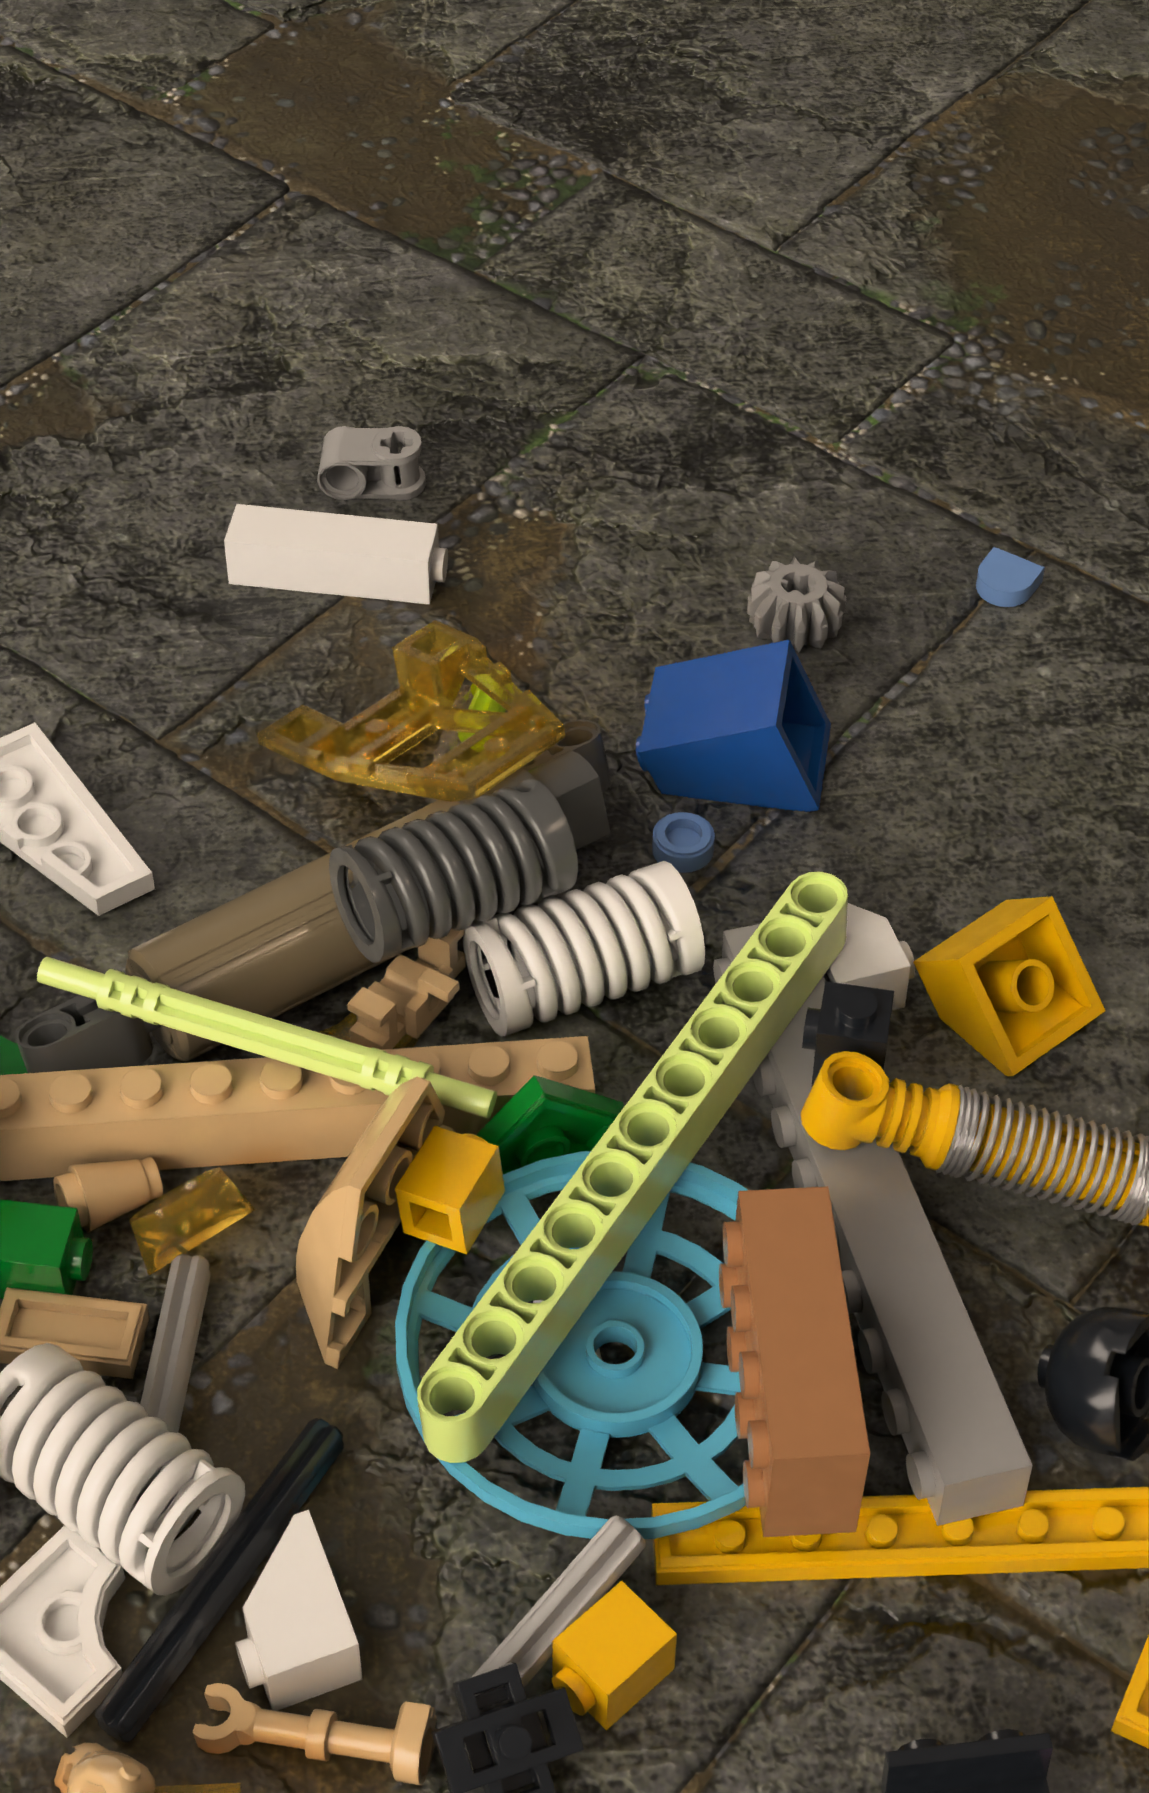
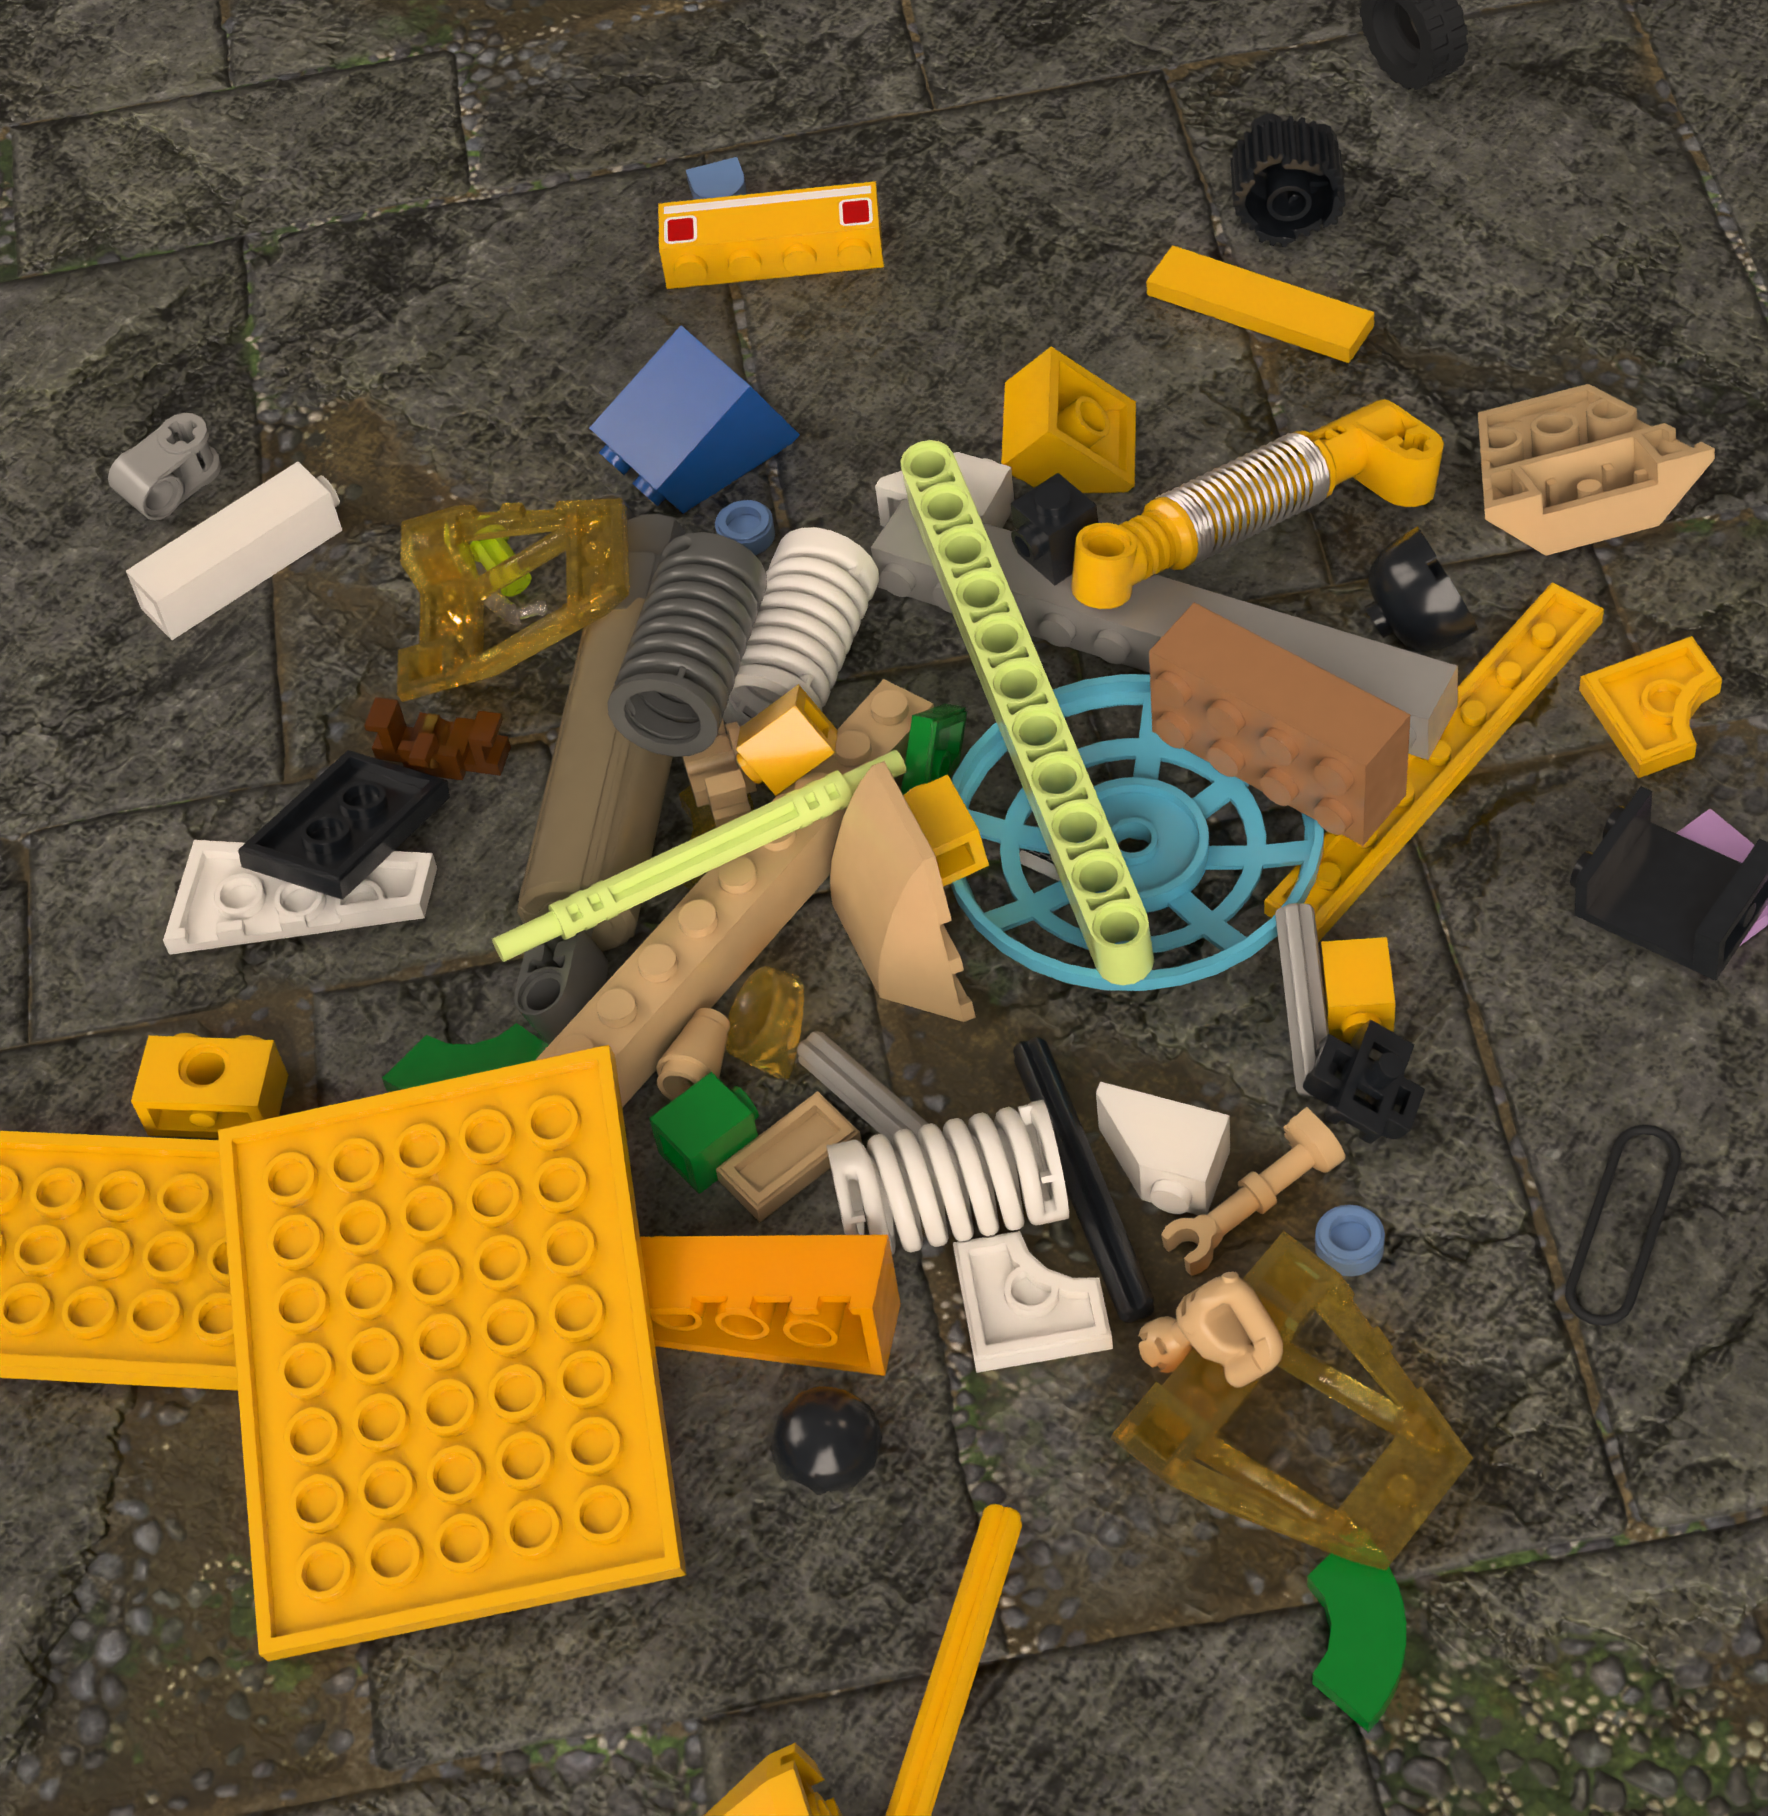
camera: 40 degrees left, 5 degrees up
(129, 799) = (344, 824): none -> black tile
(271, 802) = (436, 744): none -> reddish brown piece
(443, 1011) = (785, 741): none -> yellow brick
(796, 604) = (611, 314): light grey gear -> none
(989, 644) = (770, 235): none -> yellow brick

